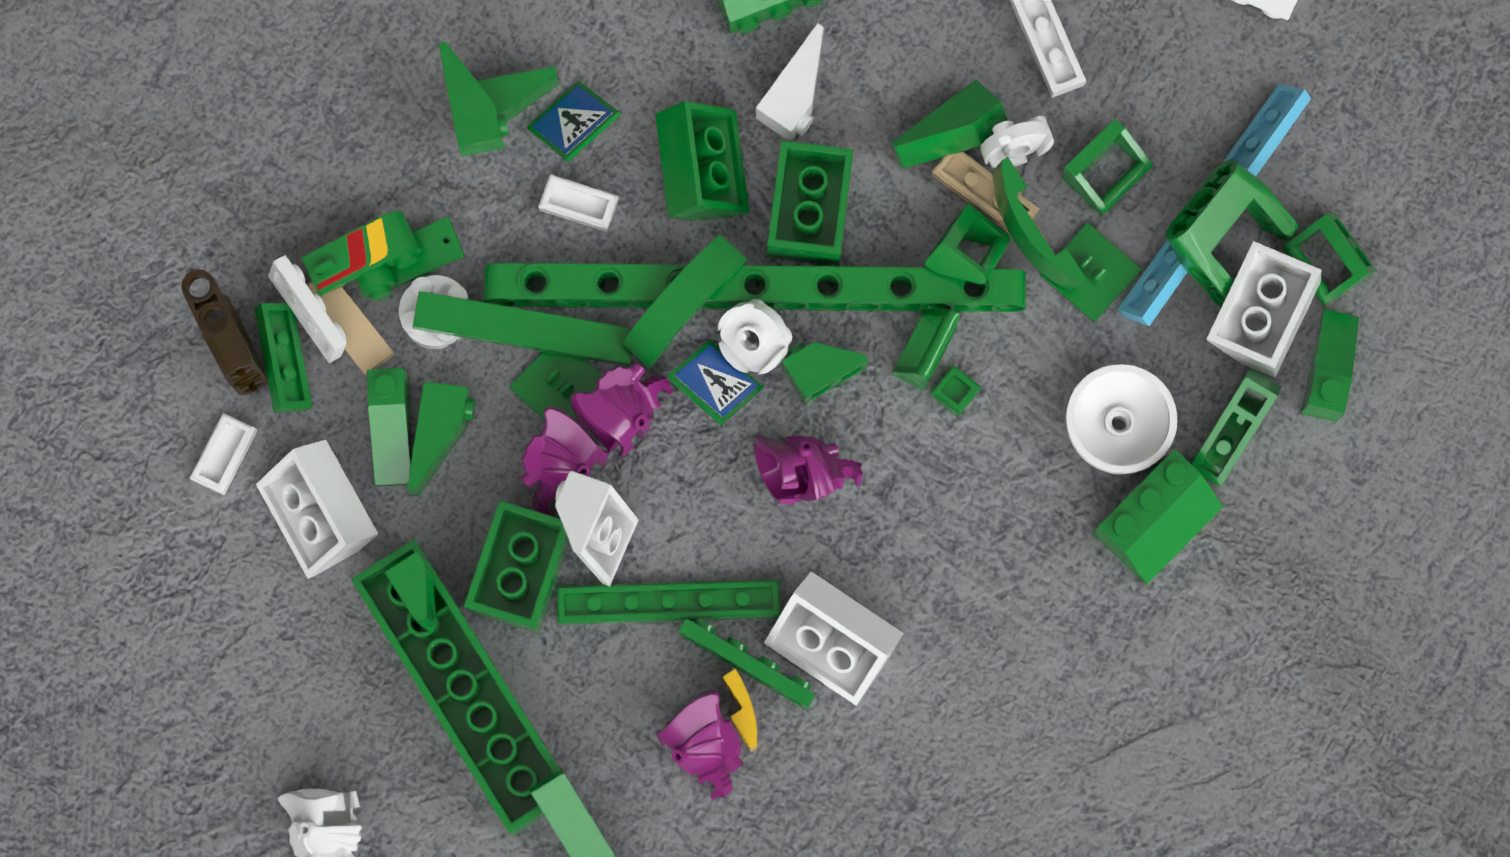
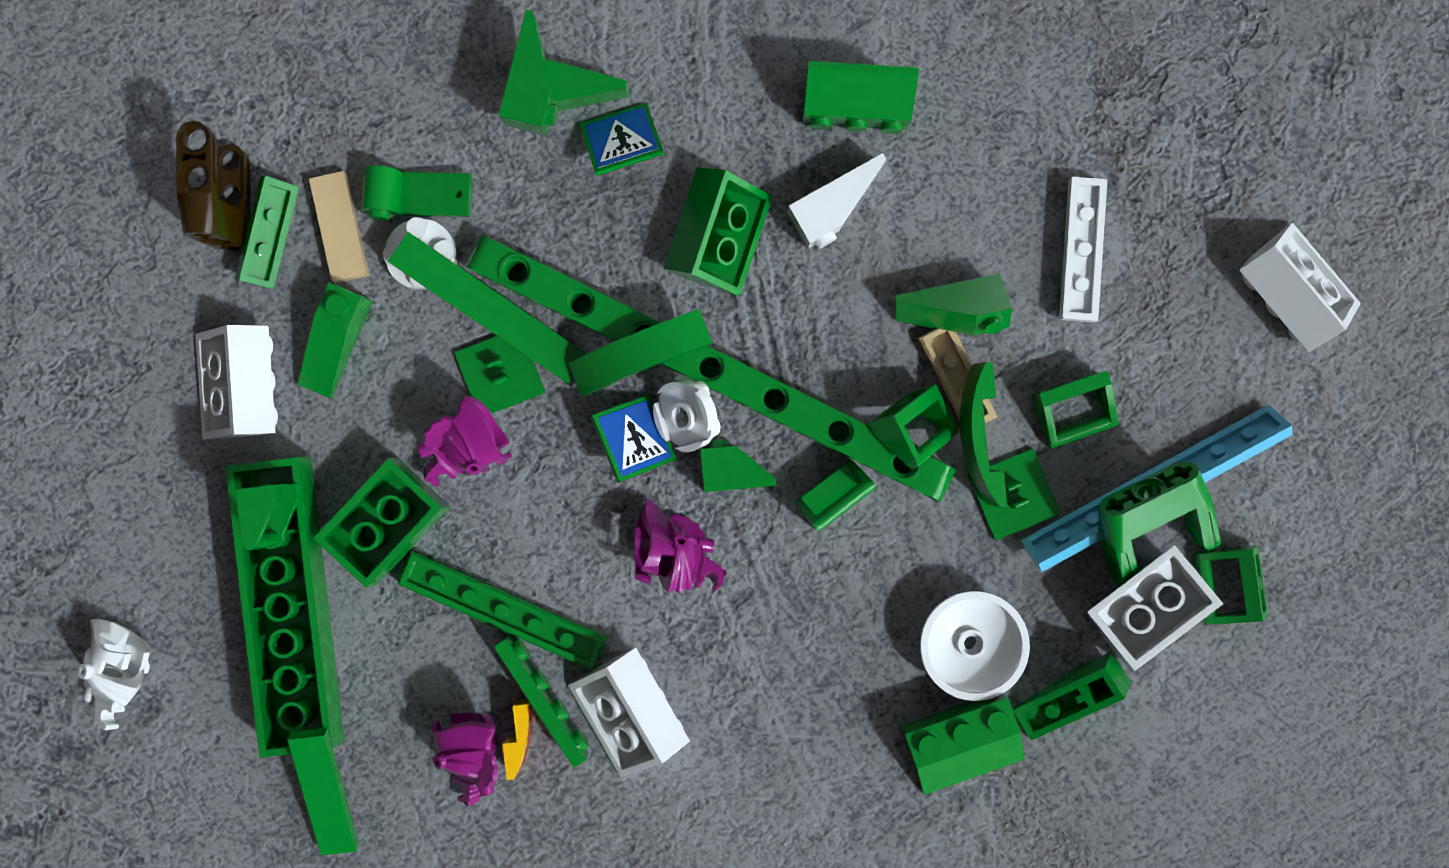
camera: 25 degrees right, 10 degrees up
(223, 454) = (179, 294): white tile -> none
(308, 308) = (306, 199): white plate -> none
(377, 243) = (376, 170): green door -> none
(439, 427) = (376, 358): green slope -> none
(578, 203) = (593, 215): white tile -> none
(595, 523) = (456, 524): white slope -> none
(620, 406) = (538, 421): magenta helmet -> none
(810, 203) = (795, 315): green brick -> none
(955, 391) = (842, 544): green tile -> none
(1017, 141) = (1004, 349): white plate -> none
(1331, 366) = (1184, 683): green slope -> none

